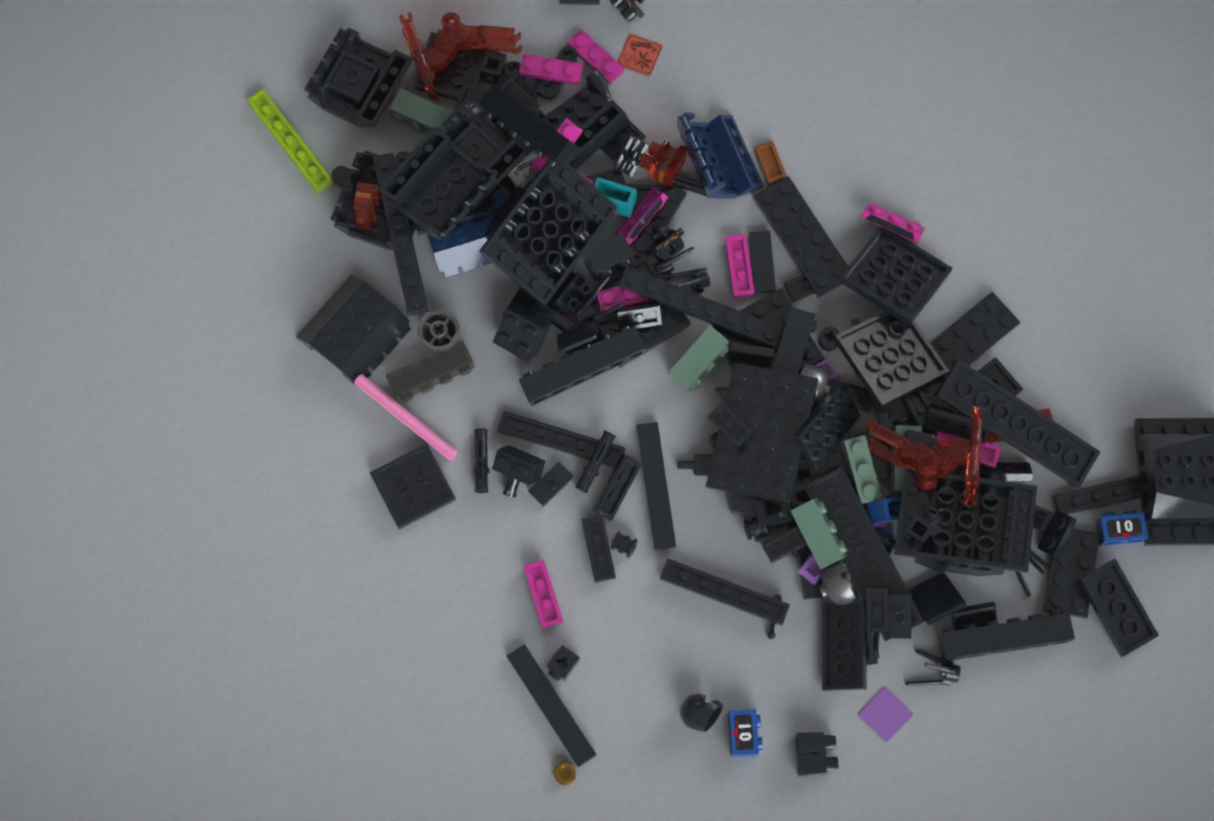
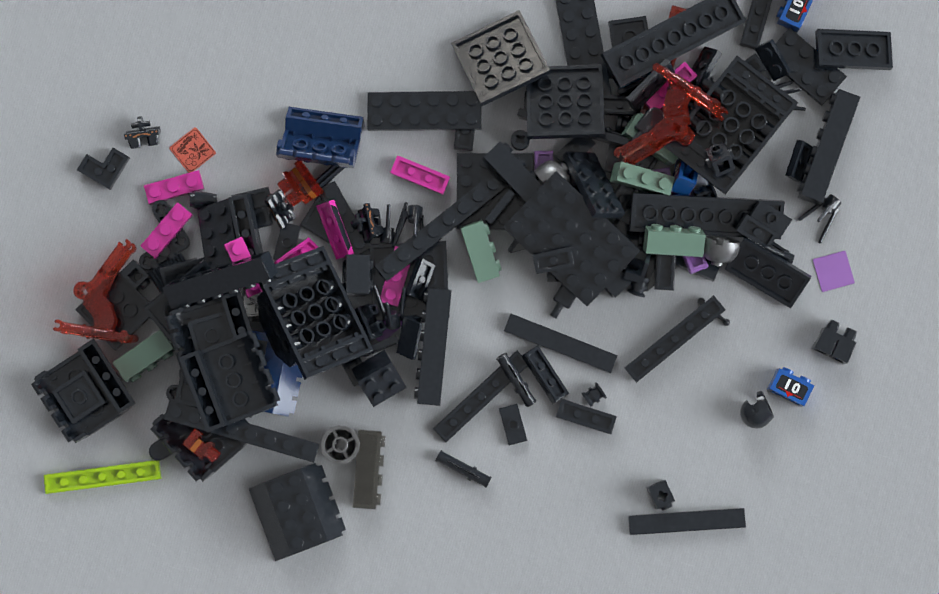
camera: 60 degrees left, 10 degrees up
(405, 417) = (394, 509): bright pink axle -> none
(412, 486) = (454, 534): black plate -> none
(518, 467) = (487, 443): black brick -> none
(543, 594) = (597, 479): dark pink plate -> none
(565, 773) = (744, 540): pearl gold tile -> none
(618, 194) = (310, 239): teal slope -> none
(762, 262) = (426, 155): black tile -> none
(769, 162) = (347, 100): dark orange tile -> none
(893, 222) = (454, 33): dark pink plate -> none
(937, 598) = (770, 181): black tile -> none

